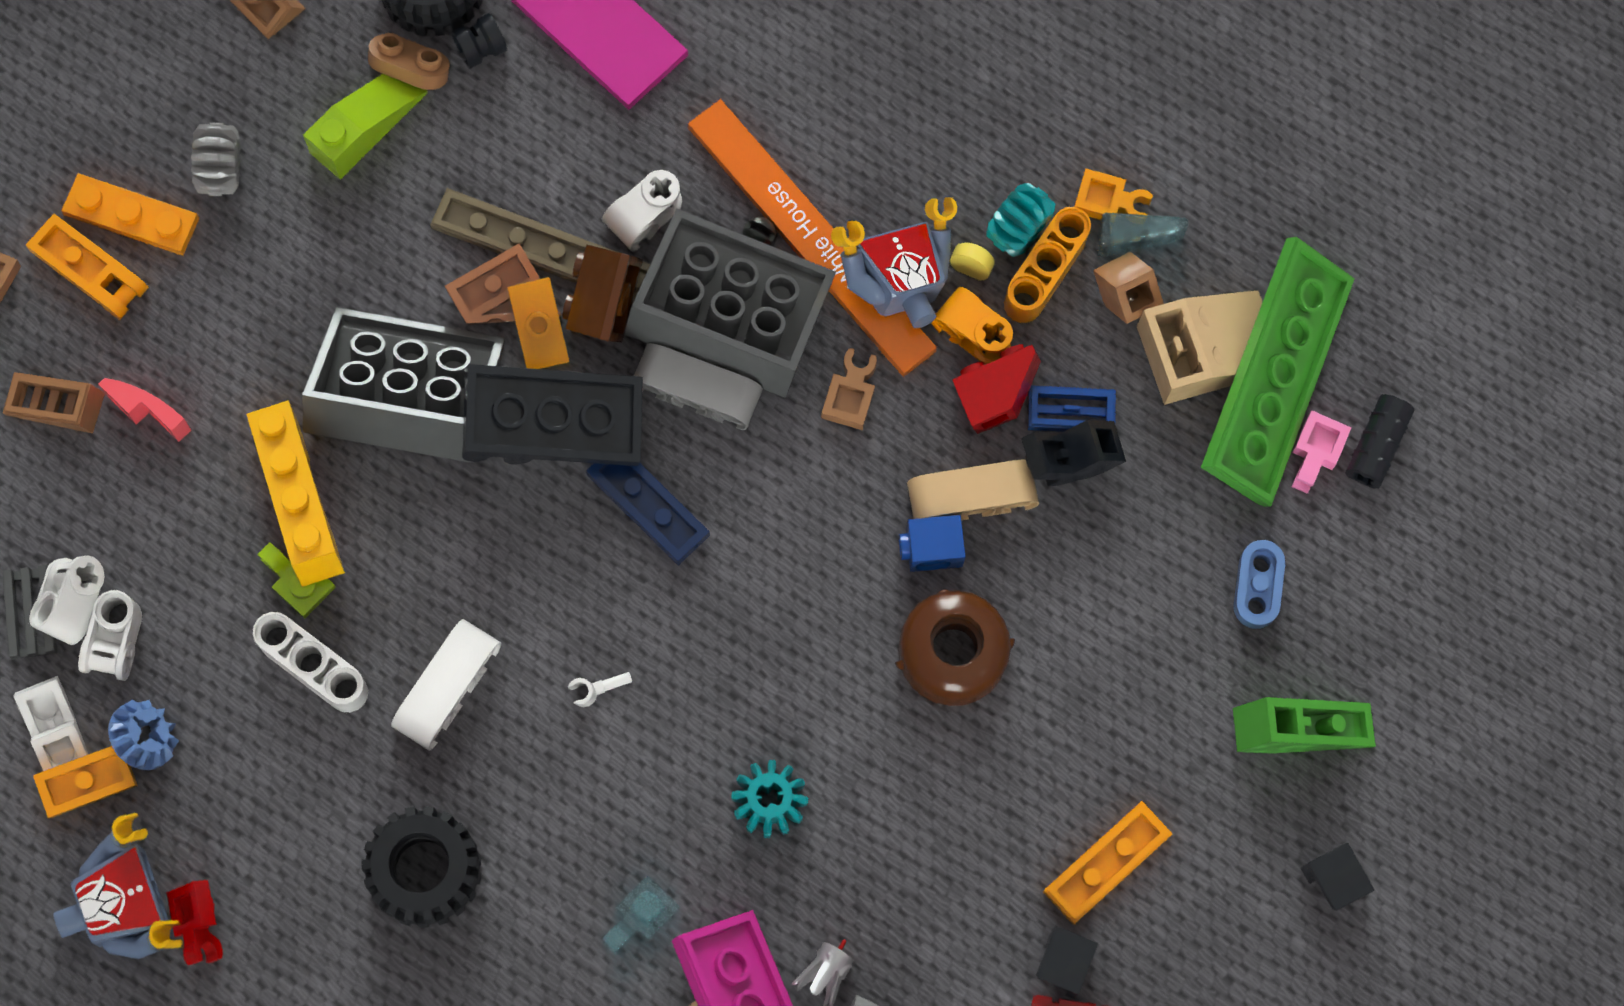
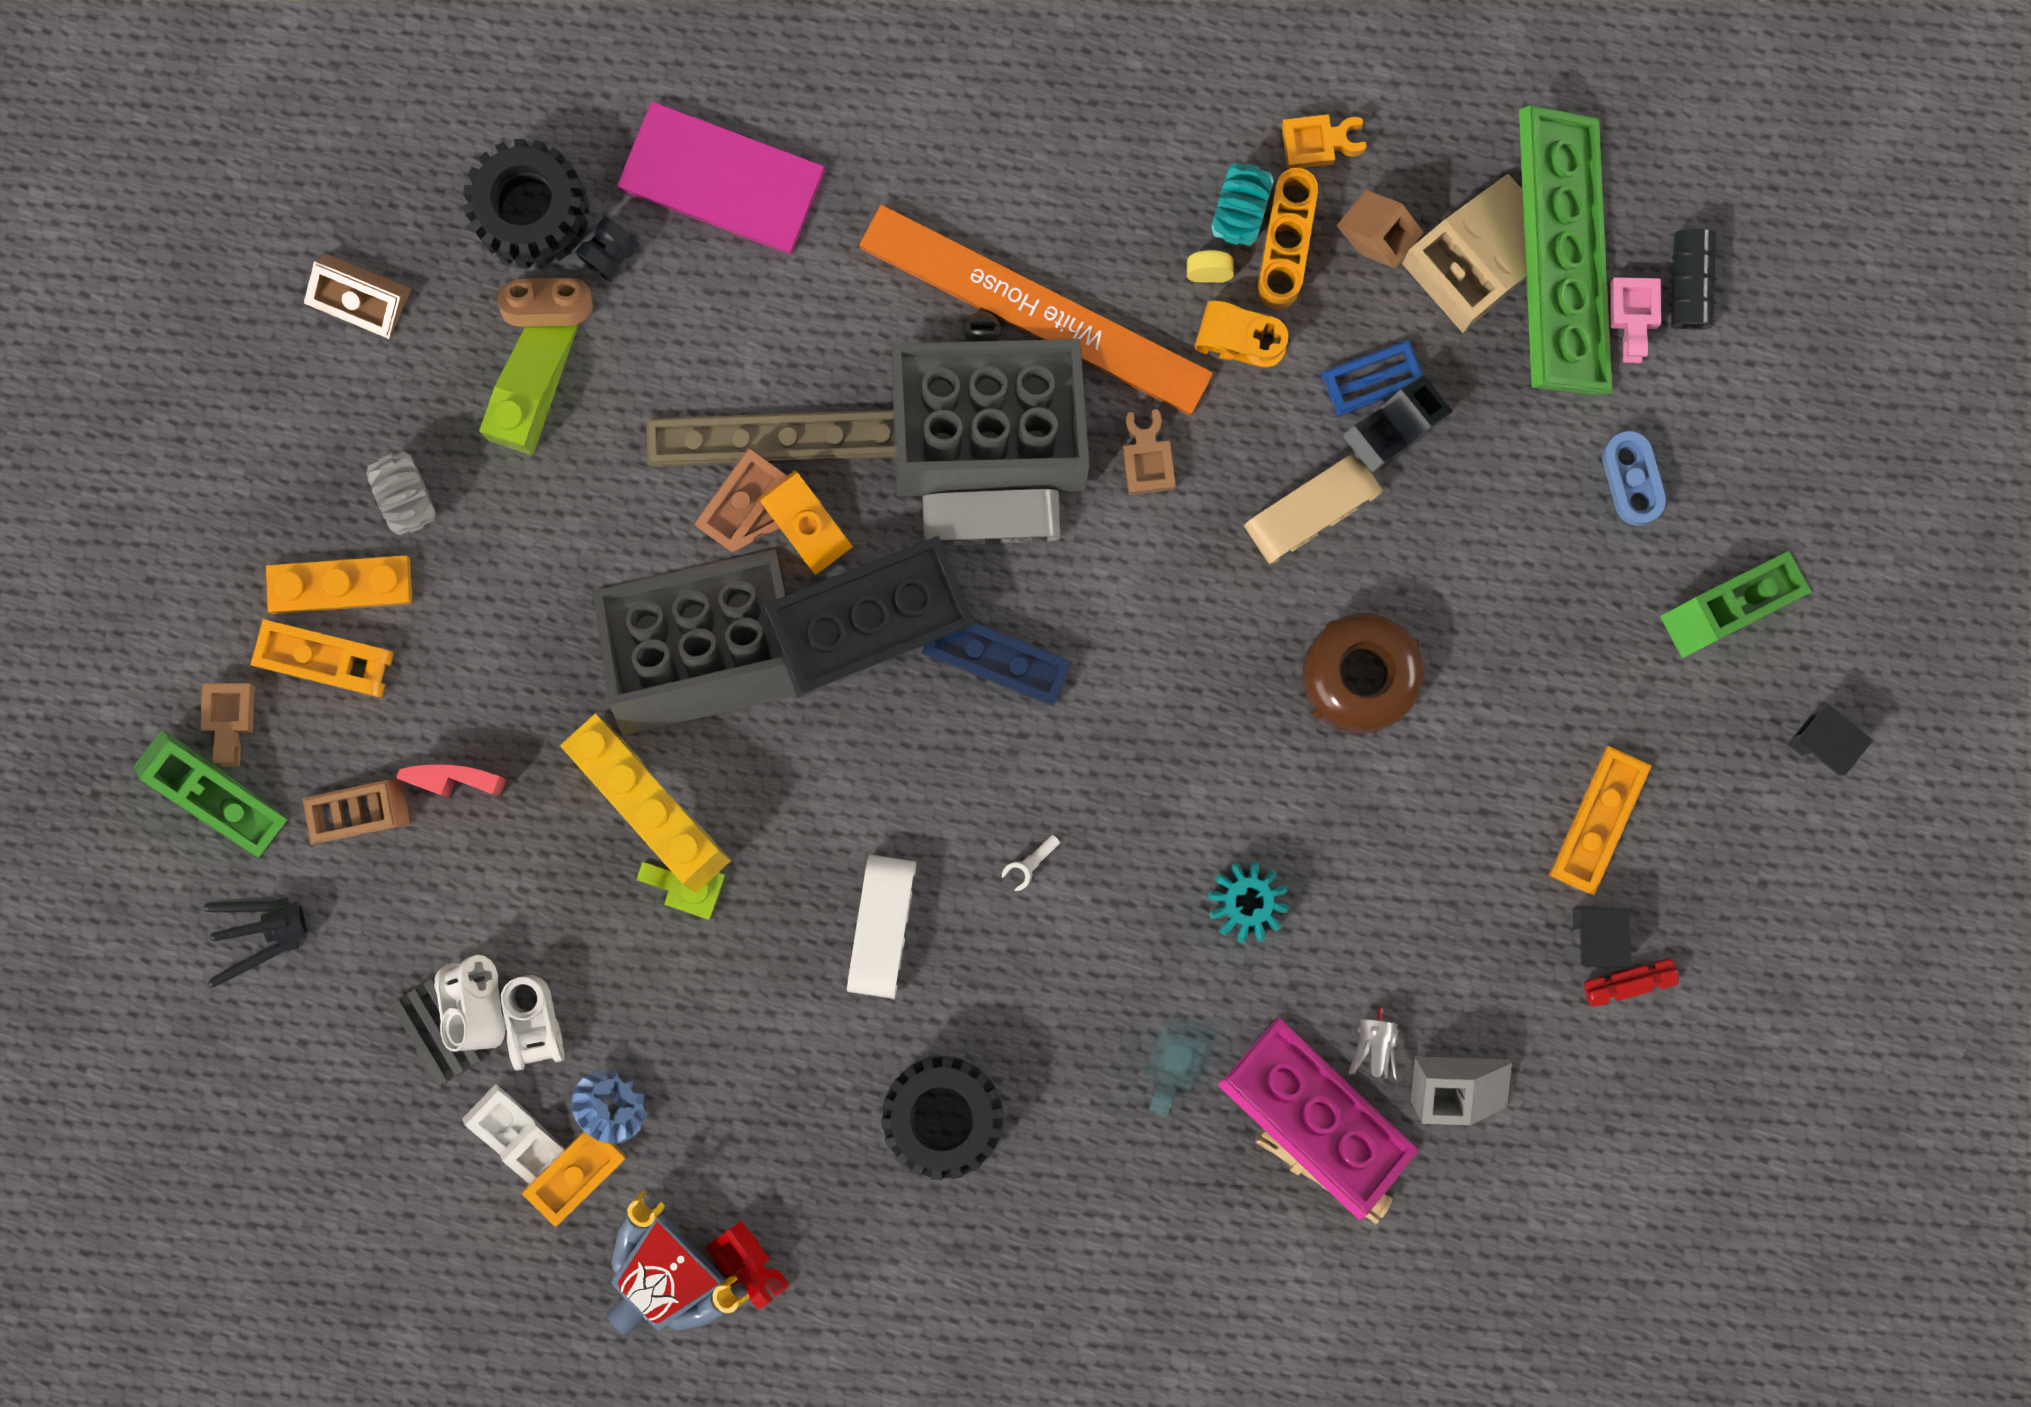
camera: 15 degrees left, 10 degrees up
(299, 645) = (715, 963): white beam -> none
(602, 293) = (857, 466): reddish brown slope -> none
(640, 213) = (854, 362): white piece -> none
(901, 266) = (1144, 305): torso -> none
(933, 543) = (1297, 577): blue brick -> none
(998, 389) = (1294, 393): red slope -> none
(1134, 232) = (1354, 169): clear light blue slope -> none

